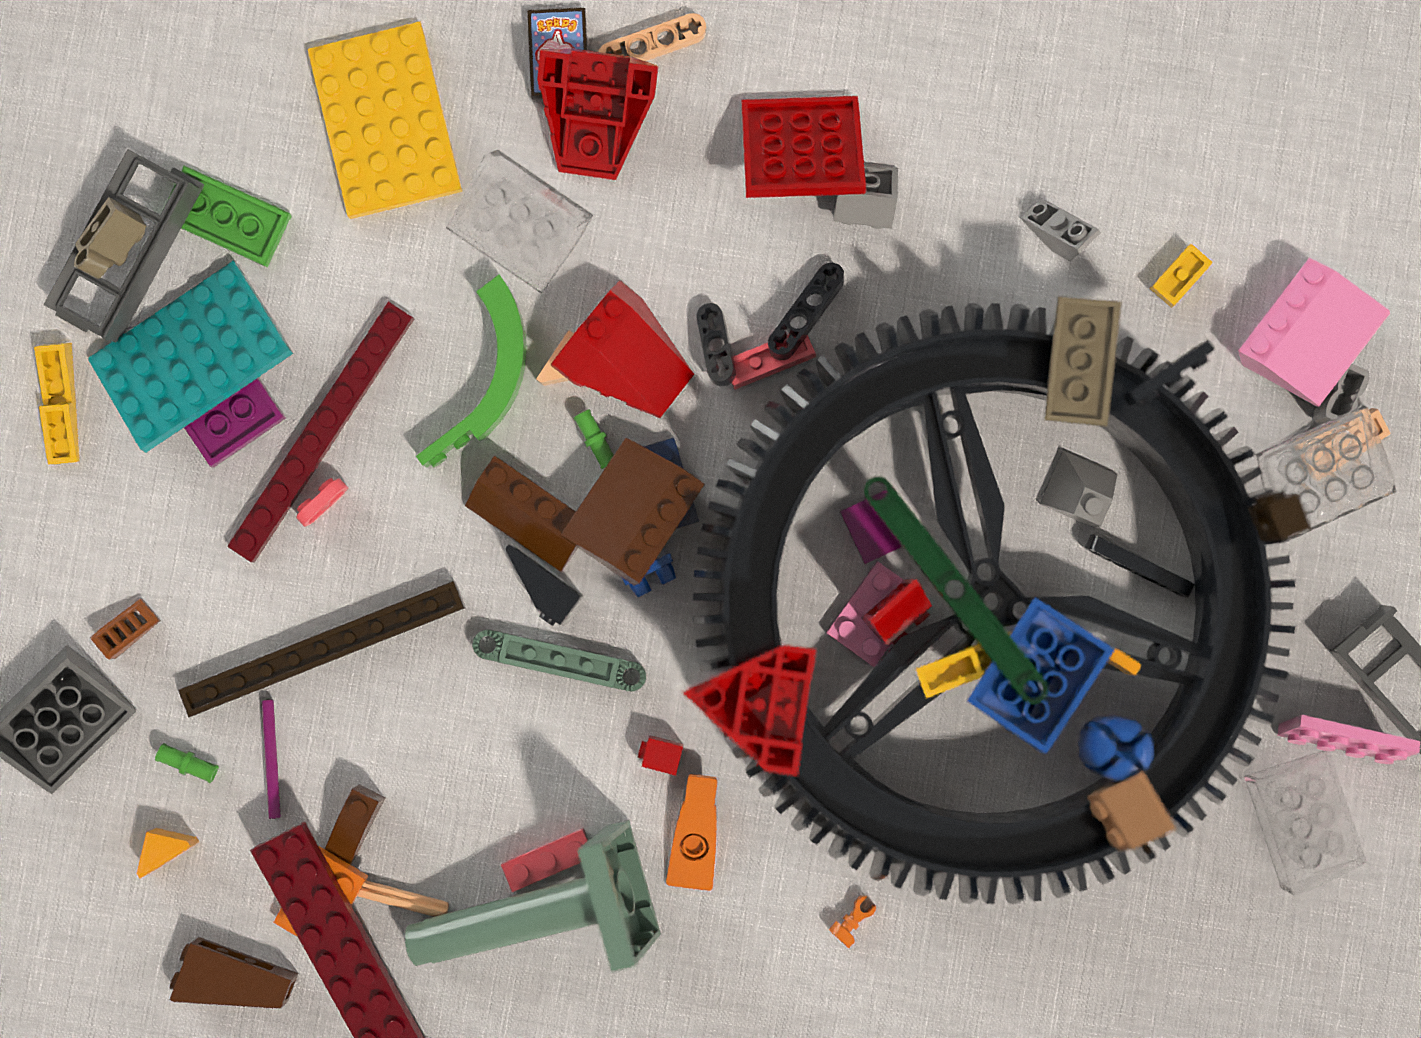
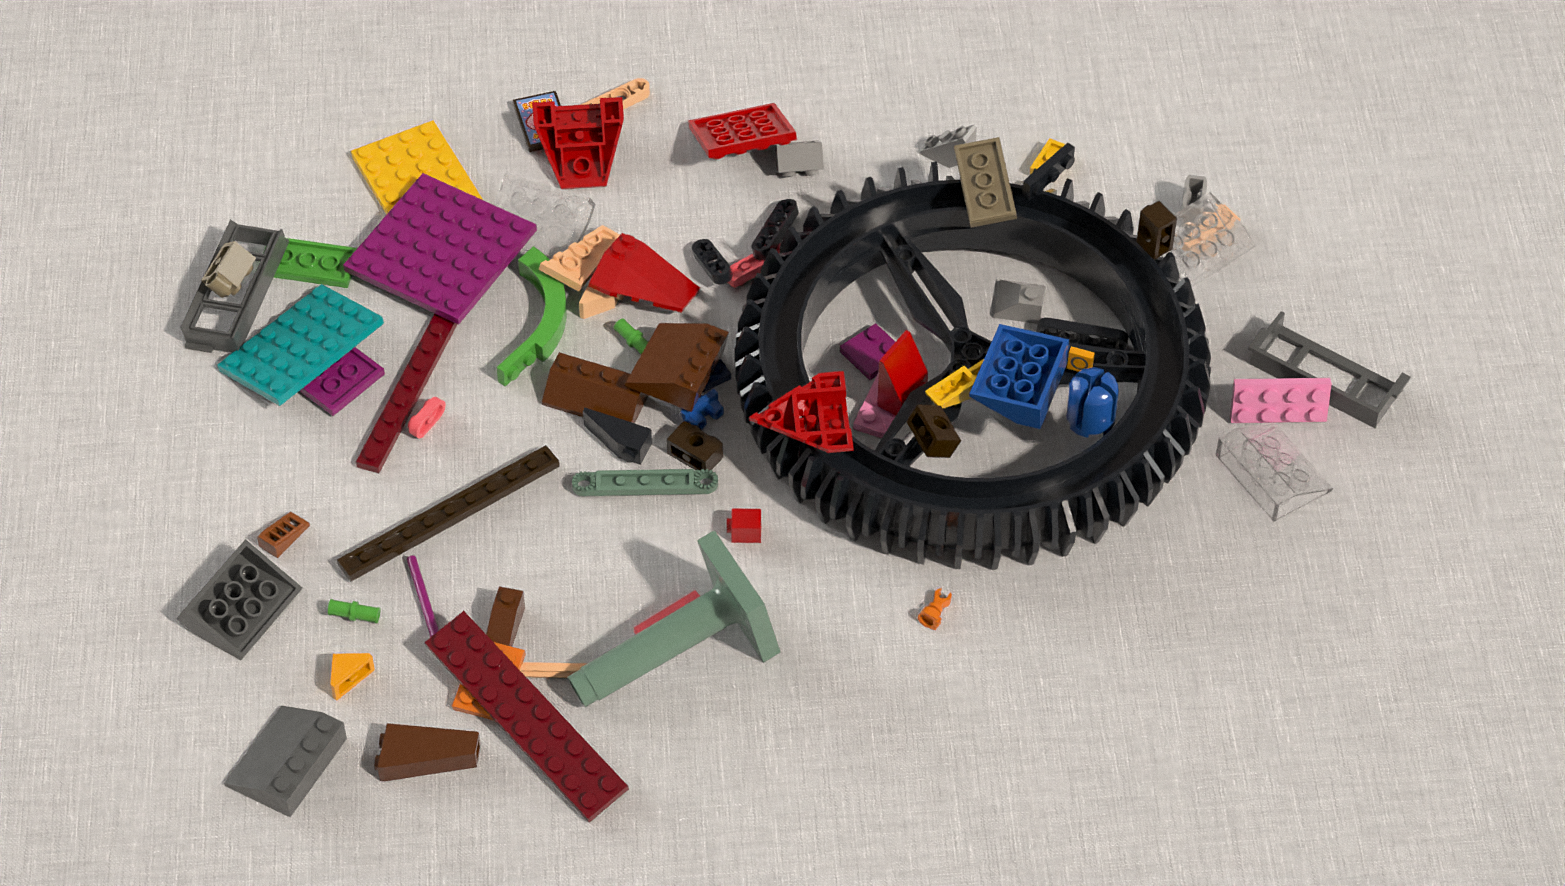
camera: 15 degrees left, 35 degrees down
(59, 402) = (198, 398): yellow slope -> none
(76, 947) = (288, 758): none -> dark grey slope
(385, 245) = (440, 248): none -> magenta plate
(552, 310) = (581, 259): none -> light nougat wing
(633, 643) = (694, 447): none -> dark brown brick
(695, 836) = (789, 575): orange piece -> none
(898, 725) = (933, 431): none -> dark brown brick
(969, 606) = (950, 337): dark green beam -> none
(1130, 812) = (1116, 428): medium nougat slope -> none
(1313, 332) = (1154, 166): bright pink slope -> none

